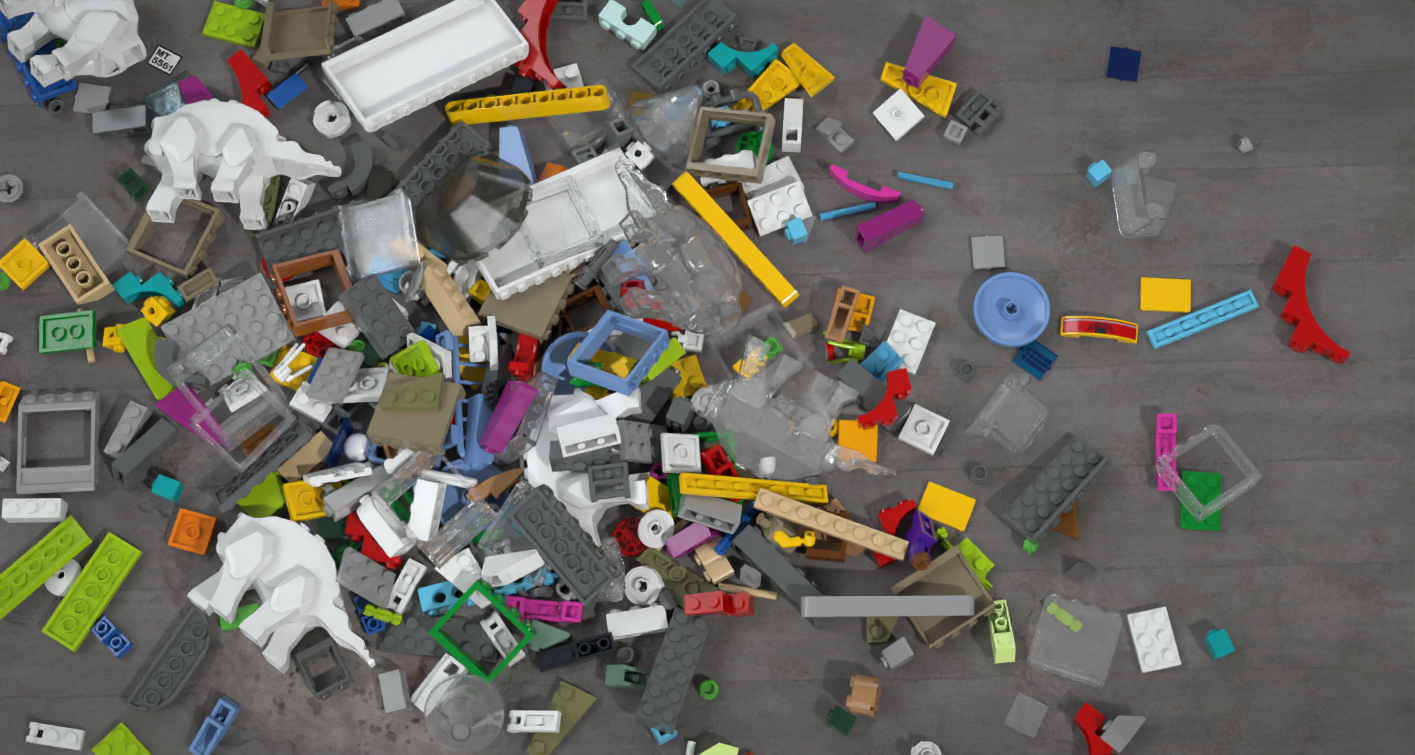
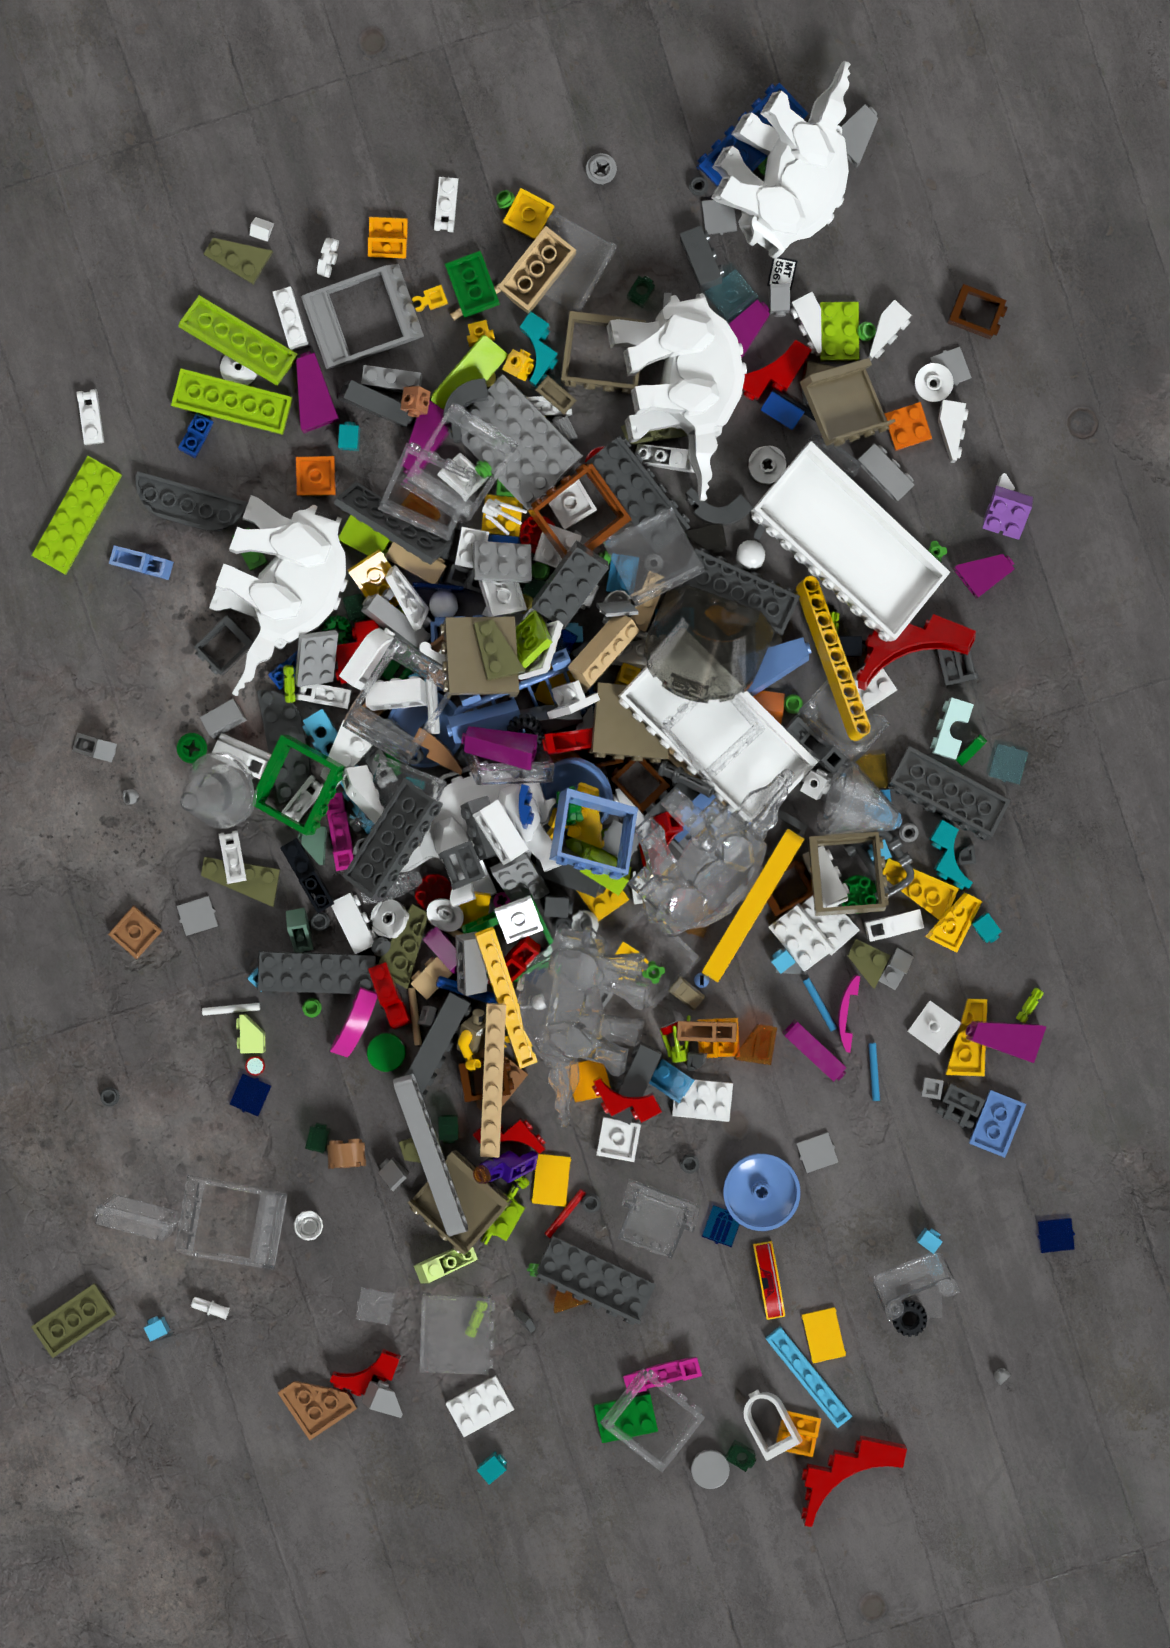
camera: 70 degrees right, 15 degrees up
(67, 372) = (433, 298): none -> yellow plate
(118, 510) = (314, 396): none -> magenta slope
(154, 410) = (415, 401): none -> nougat brick
(184, 63) = (779, 299): none -> light grey slope
(211, 45) = (809, 316): none -> white slope
(405, 736) = (188, 739): none -> green gear
(408, 155) = (750, 555): none -> white hair
(559, 157) = (792, 703): none -> bright green plate
(574, 407) = (525, 811): none -> blue slope
(737, 646) = (355, 1023): none -> dark pink slope
(774, 628) = (386, 1052): none -> green tile
(790, 313) = (697, 980): none -> medium blue hinge
(819, 157) = (868, 961): none -> olive wing
(820, 45) = (986, 928): none -> teal brick
(867, 586) = (448, 1128): none -> clear green brick
(870, 275) = (758, 1045): none -> clear orange wing
(902, 28) = (1029, 1005): none -> lime axle
(982, 501) = (565, 1213): none -> red bar
(1004, 85) = (997, 1123): none -> medium blue plate
(1179, 207) = (921, 1321): none -> black tyre
(1255, 344) = (808, 1429): none -> light orange slope
(1259, 407) = (734, 1450): none -> clear green brick
(1263, 356) = (781, 1446): none -> white window
(1270, 434) = (710, 1469): none -> light grey tile

